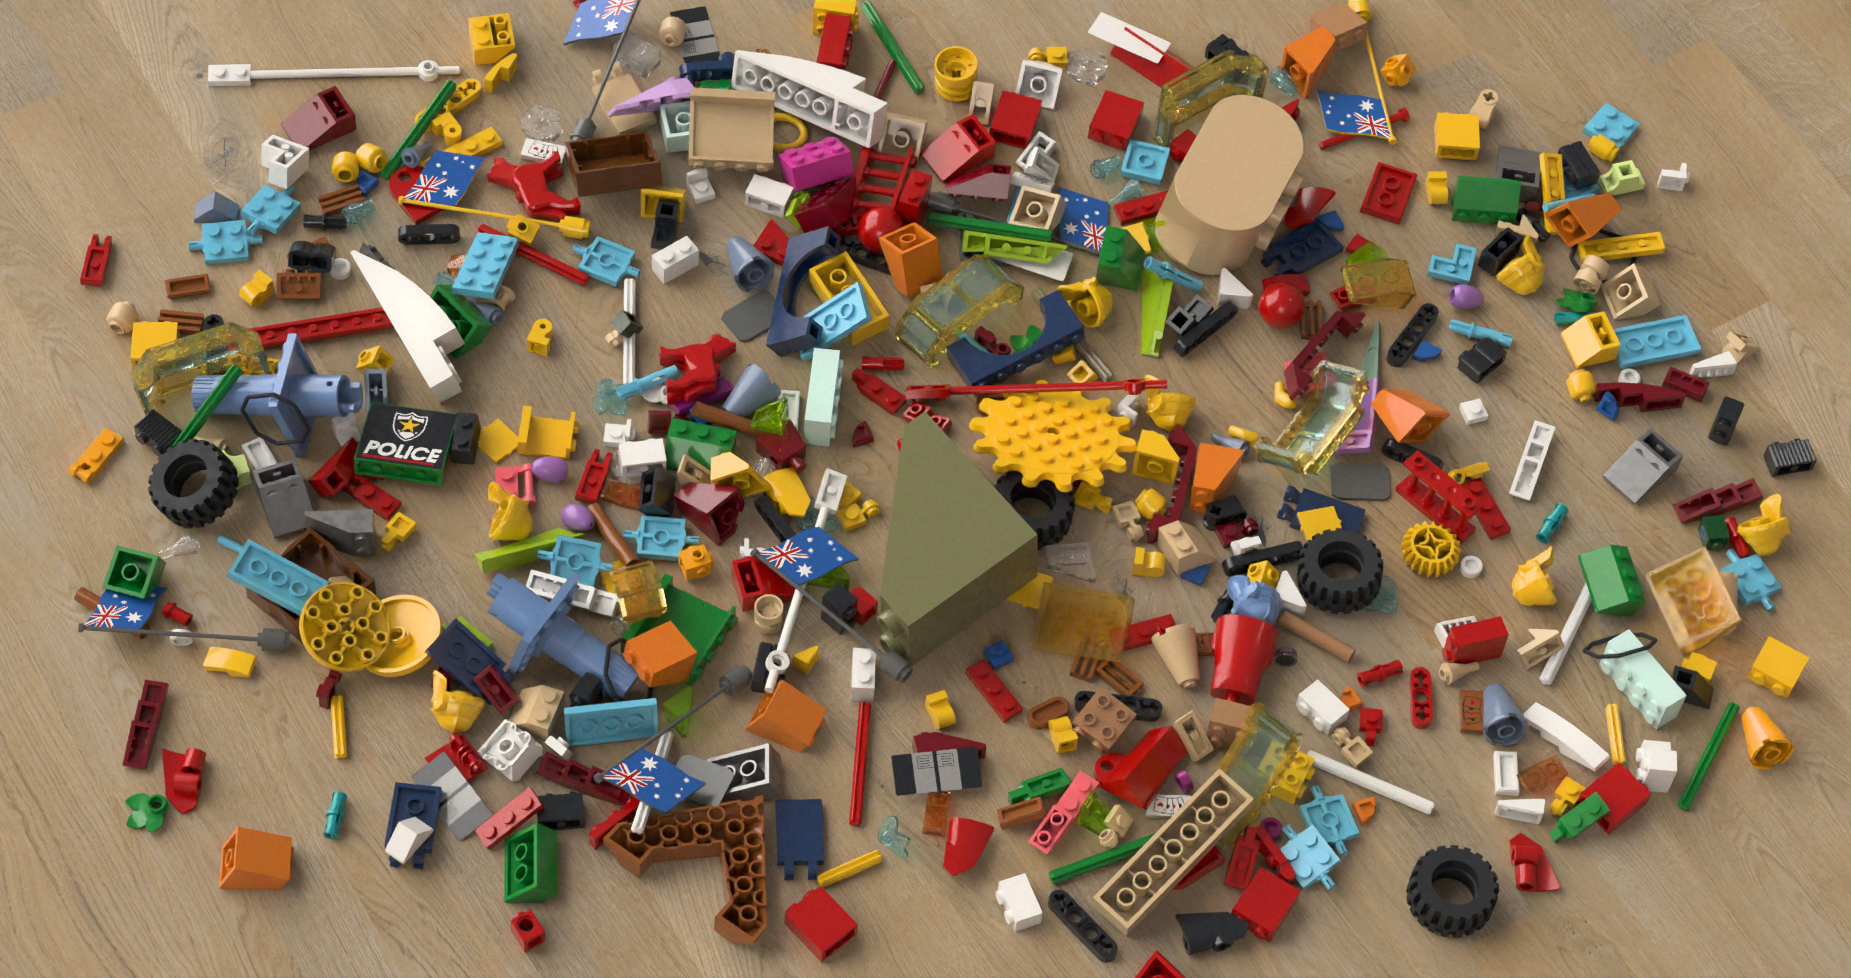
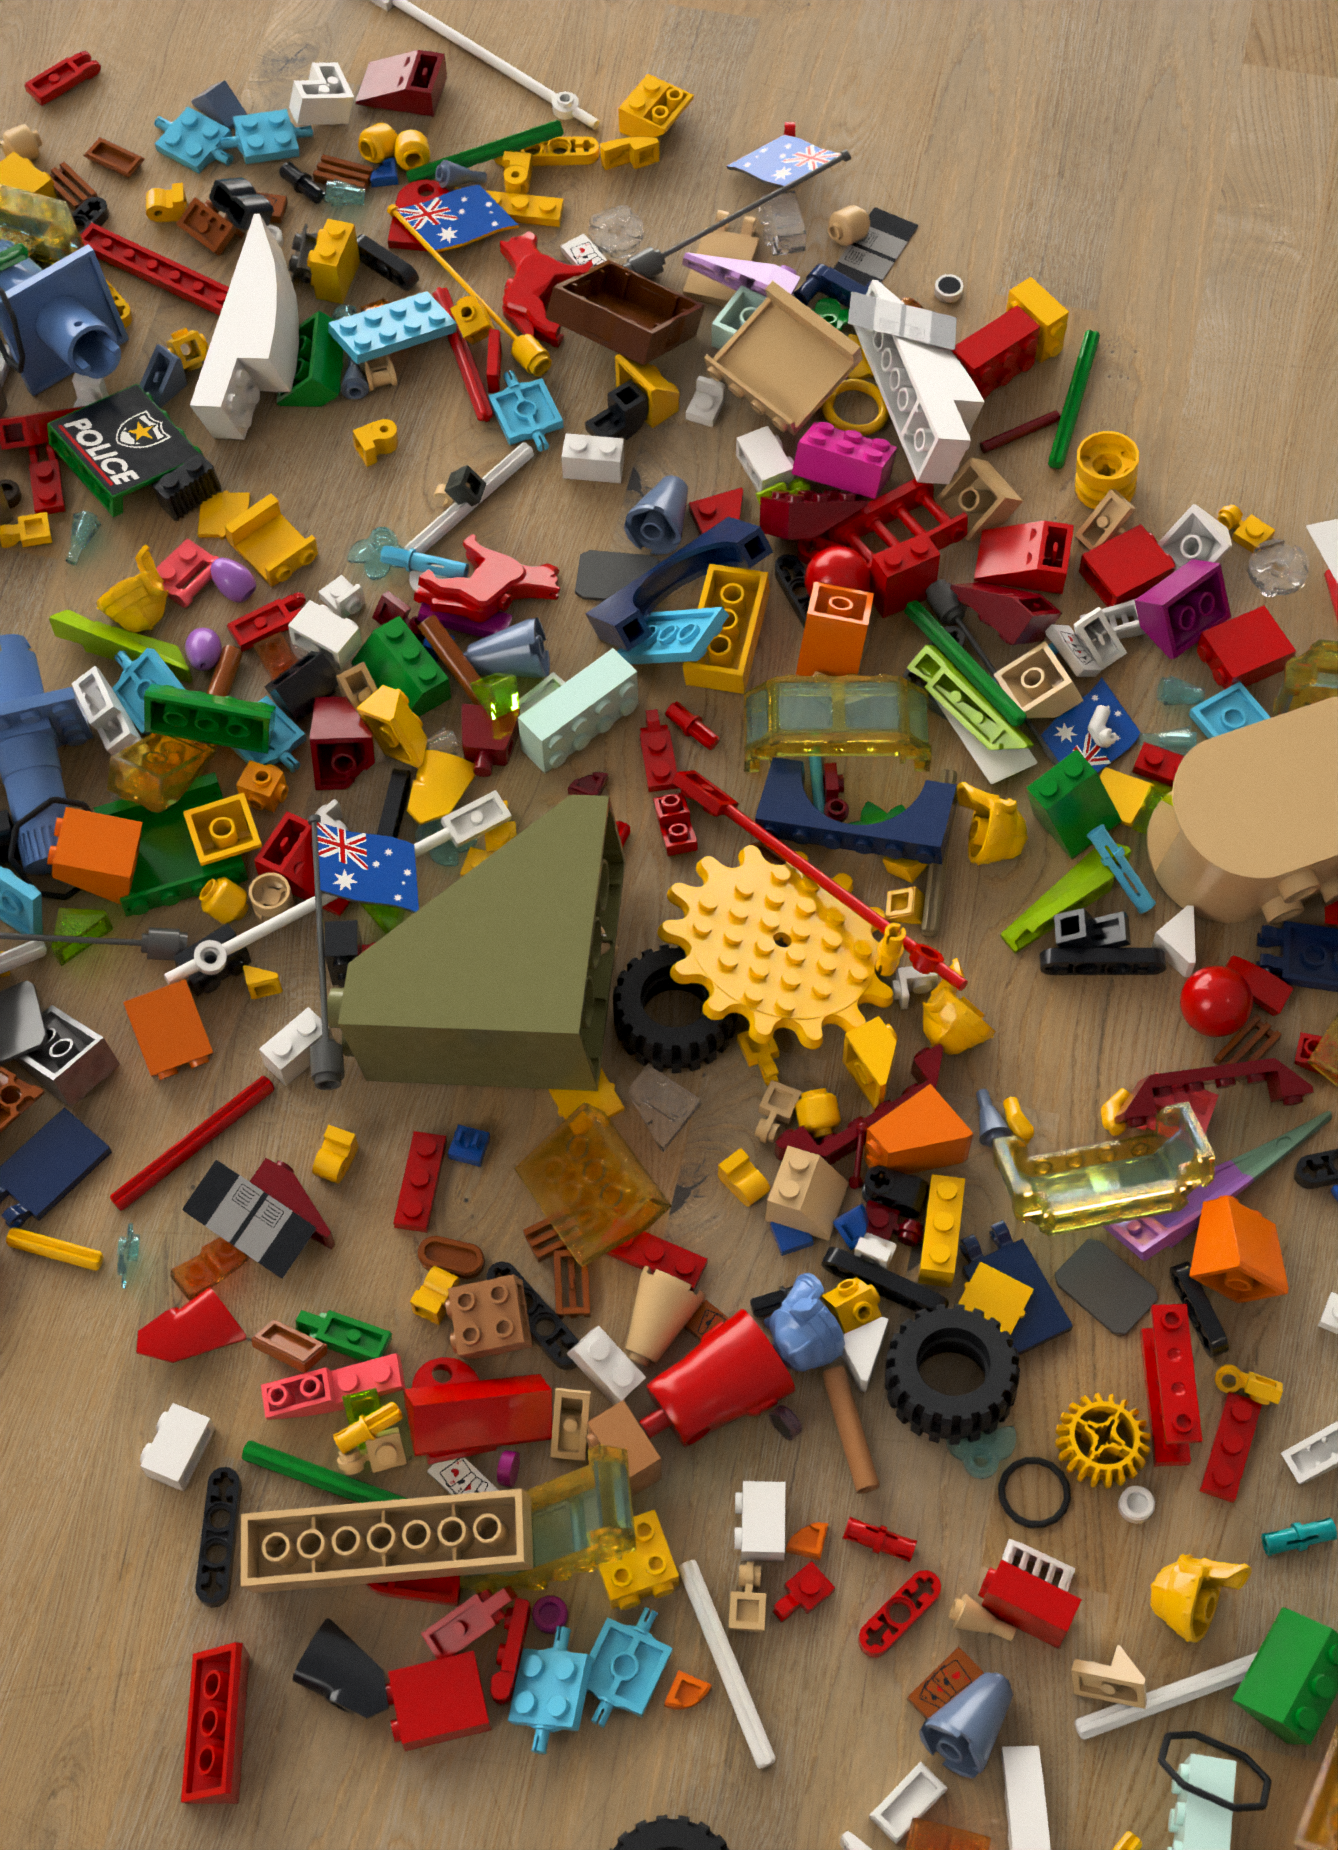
camera: 50 degrees right, 5 degrees up
(405, 251) = (334, 261): none -> yellow brick
(429, 505) = (83, 529): none -> clear light blue cone
(558, 245) = (494, 361): none -> red tile
(637, 544) = (208, 718): none -> green slope
(707, 598) = (222, 829): none -> yellow slope
(742, 634) = (224, 900): none -> yellow head
(761, 31) = (948, 288): none -> tile
(778, 63) = (902, 320): none -> sticker
(1066, 118) = (1184, 606): none -> magenta slope
(1085, 214) = (1099, 732): none -> white arm
(1105, 813) = (367, 1427): none -> yellow axle
(1113, 394) = (890, 949): none -> yellow pin
(1181, 696) = (606, 1365): none -> white brick
(1199, 523) = (856, 1181): none -> dark red hinge
(1222, 543) = (852, 1225): none -> blue tile
(1276, 524) = (941, 1230): none -> yellow arch
(1409, 610) = (1012, 1514): none -> black piece

